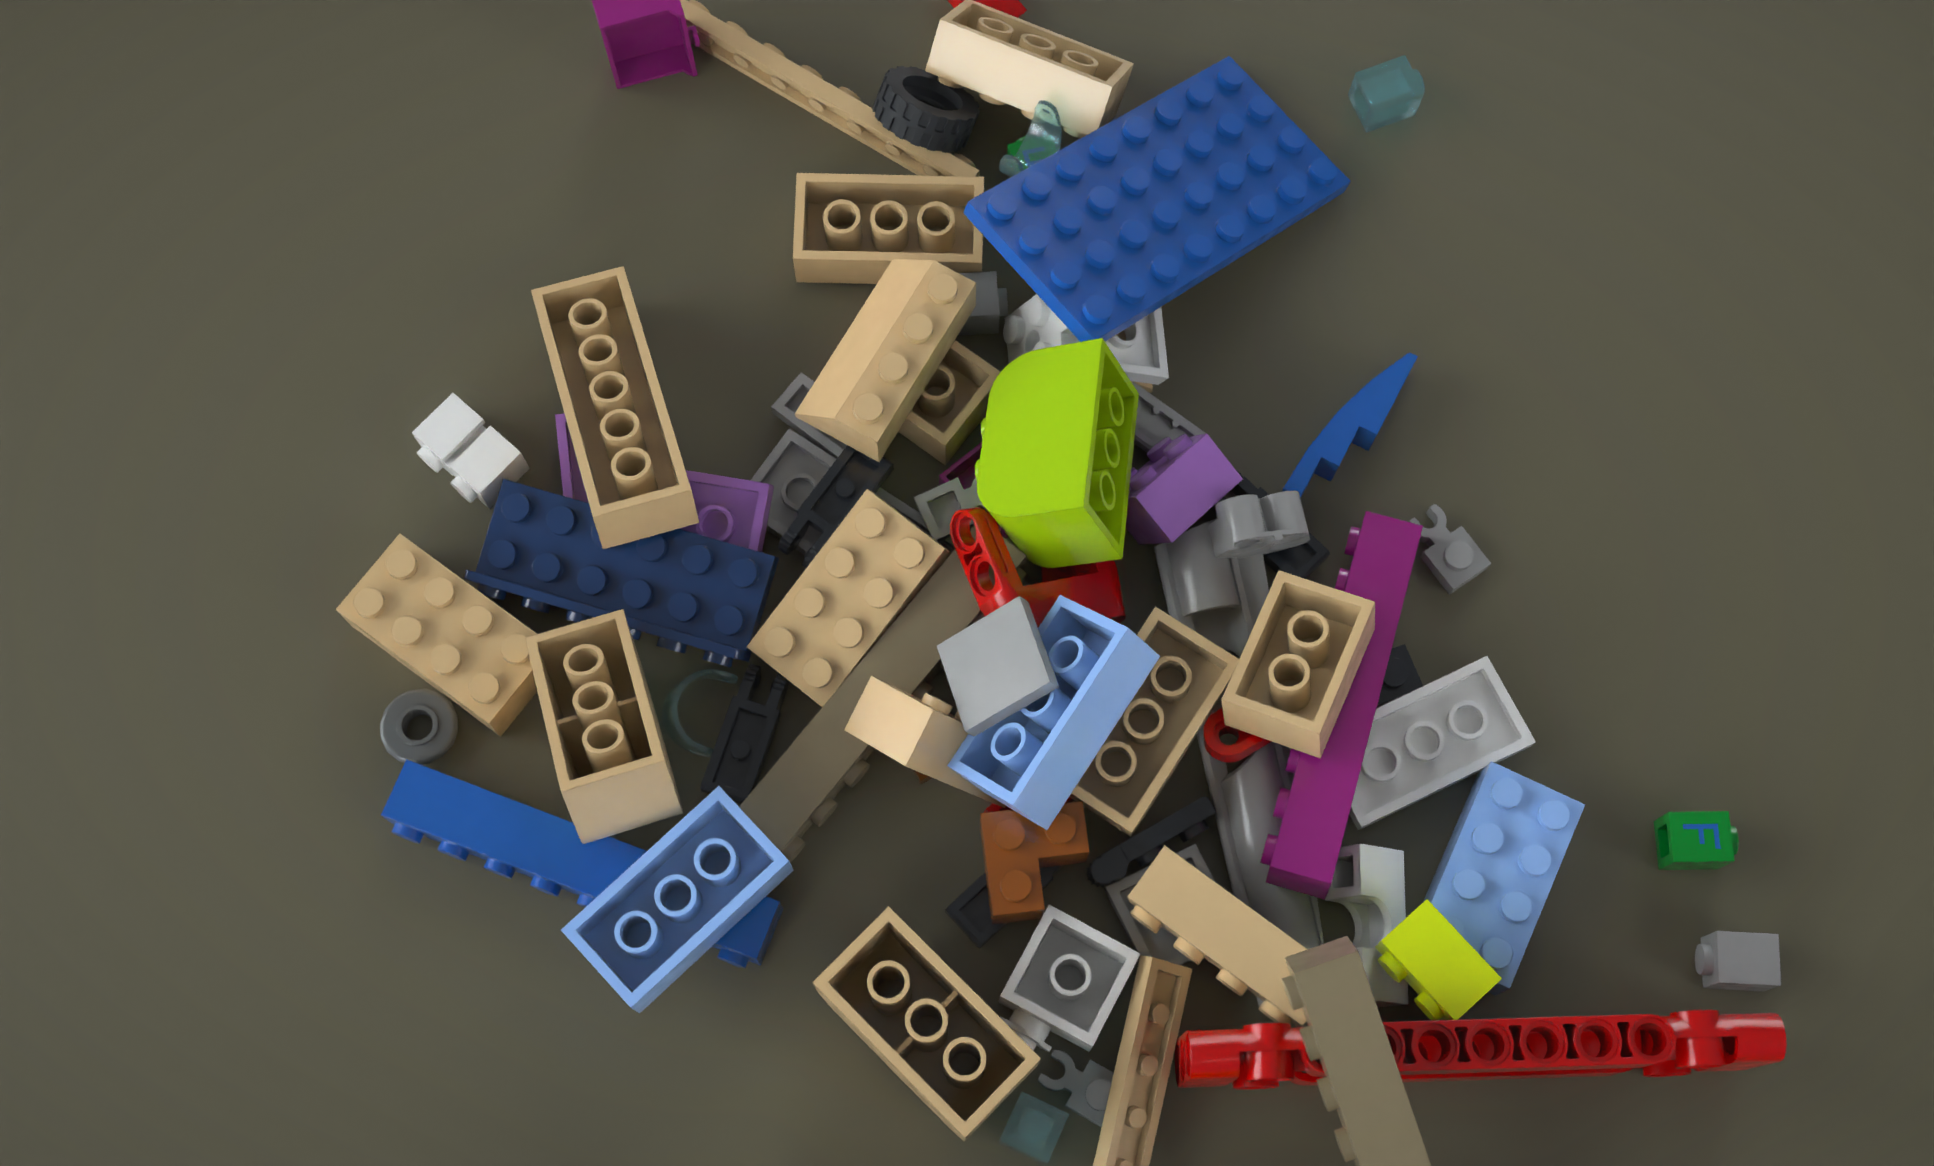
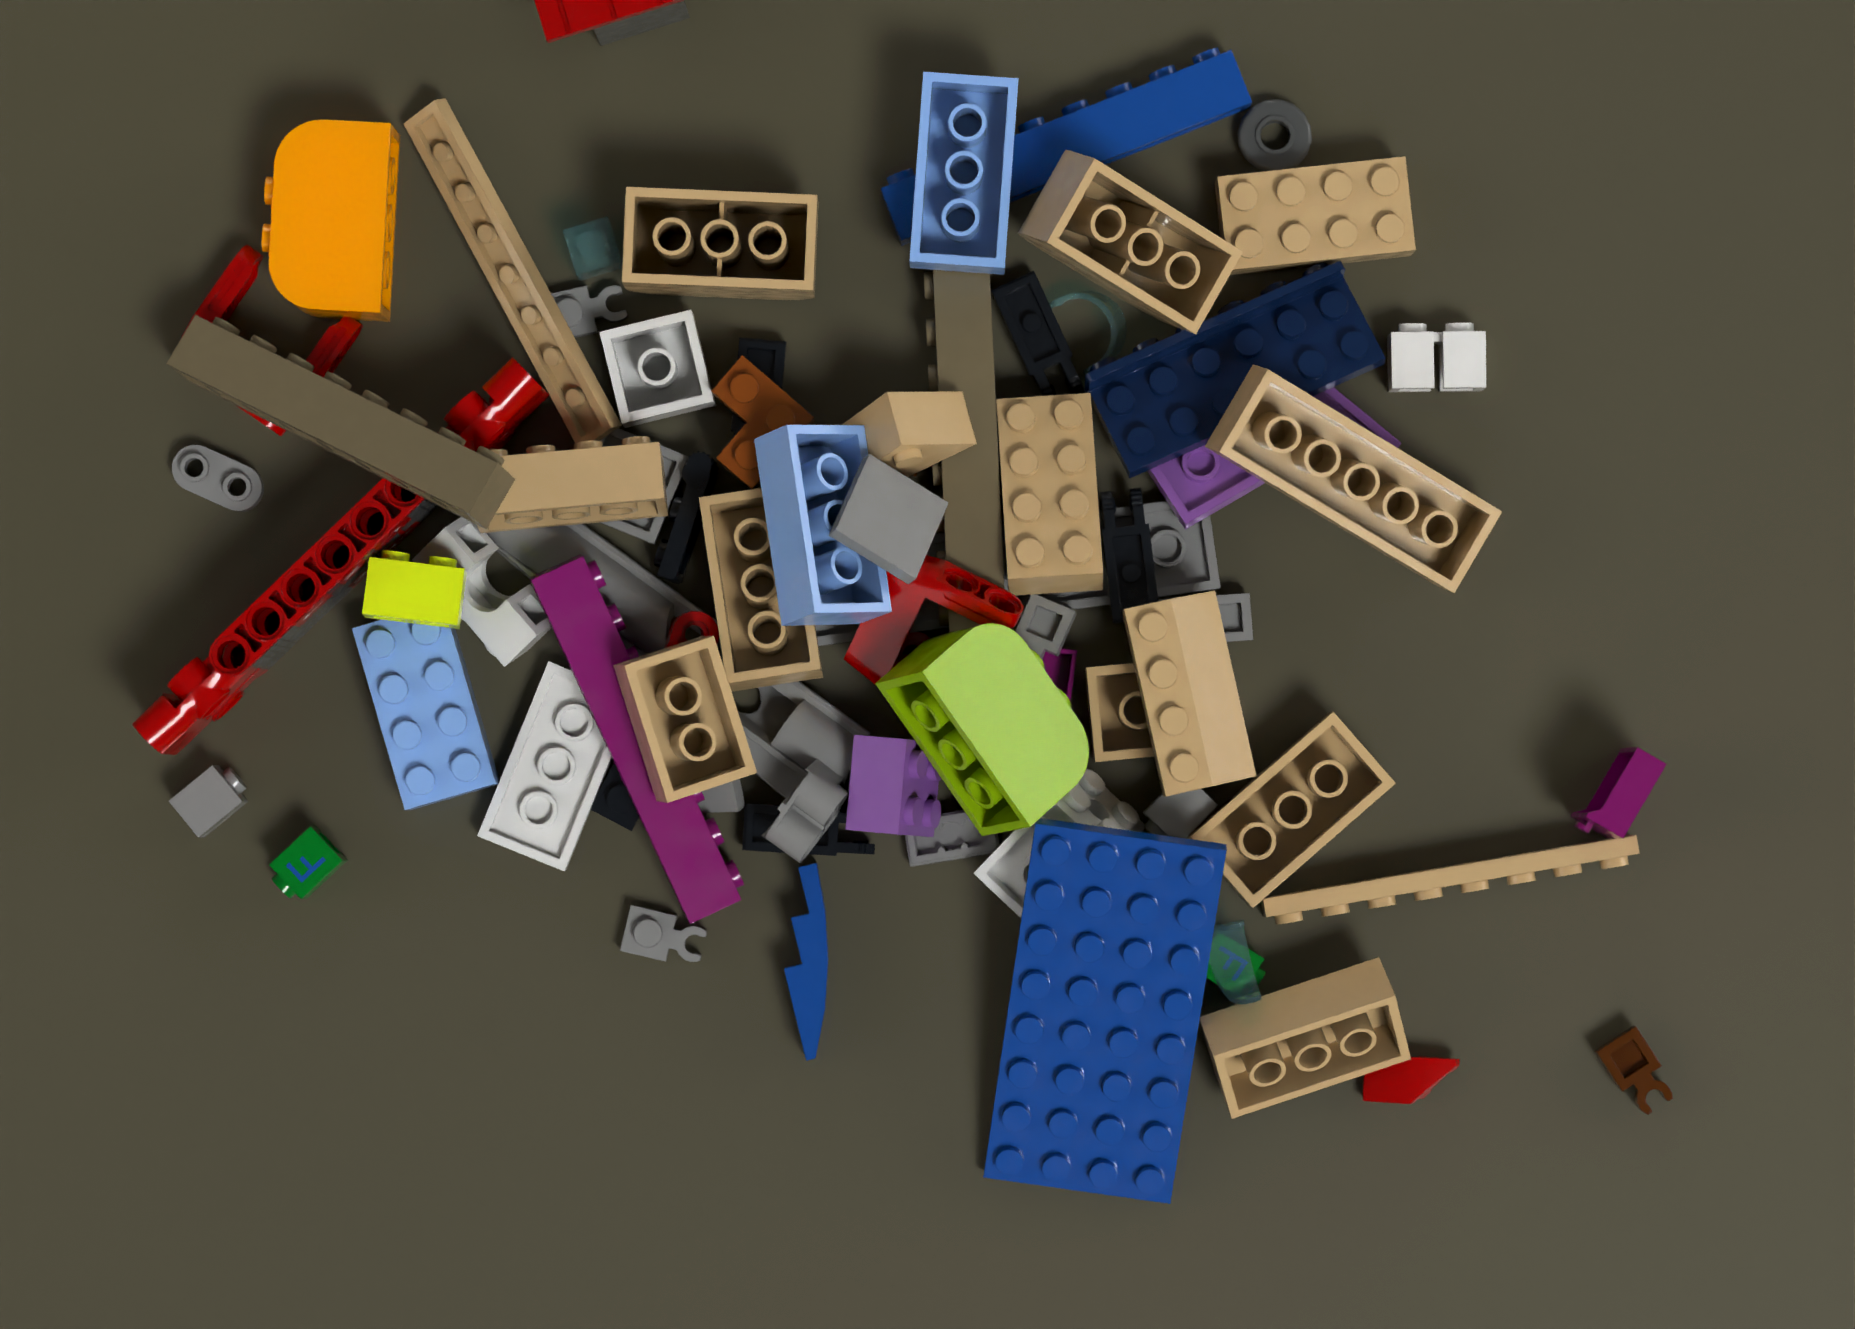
camera: 140 degrees right, 15 degrees up
(925, 110) = (1347, 904): black tyre -> none
(1029, 1029) = (655, 306): white plate -> none
(1386, 93) = (1018, 1279): clear light blue brick -> none

